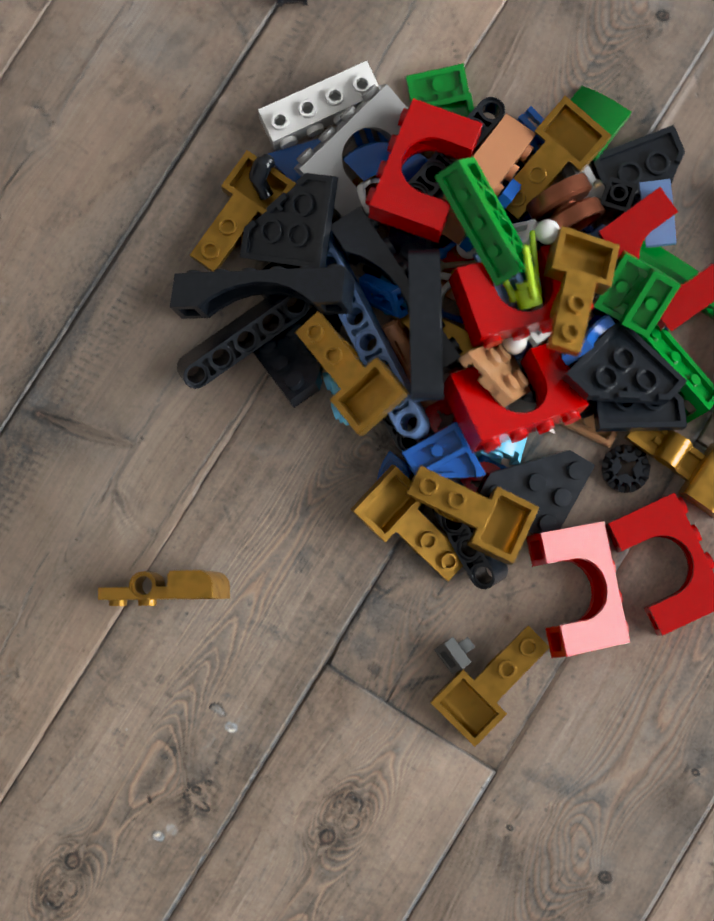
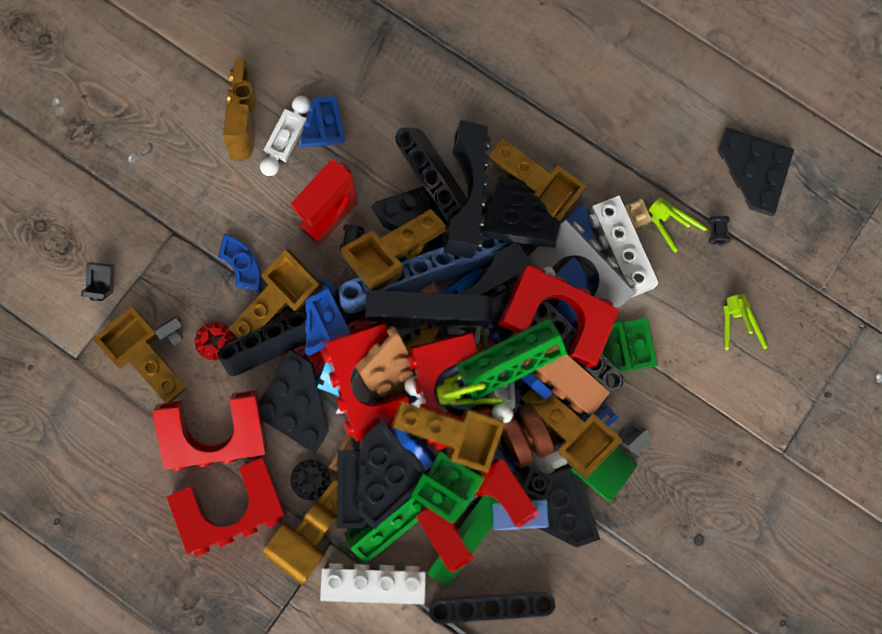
camera: 90 degrees right, 5 degrees down
(177, 483) = (322, 124): none -> blue wing
(194, 530) = (285, 136): none -> white plate
(259, 173) = (564, 193): black arm -> none
(270, 59) = (663, 210): none -> lime plant
(274, 89) = (638, 213): none -> tan tile
(292, 460) = (326, 201): none -> red arch
(326, 436) = (352, 233): none -> black bush
(362, 572) = (243, 263): none -> blue tile
(399, 750) = (98, 281): none -> black bracket
(461, 614) = (202, 337): none -> red gear
(497, 522) = (266, 361): pearl gold plate -> none
(551, 88) = (634, 437): none -> dark grey tile

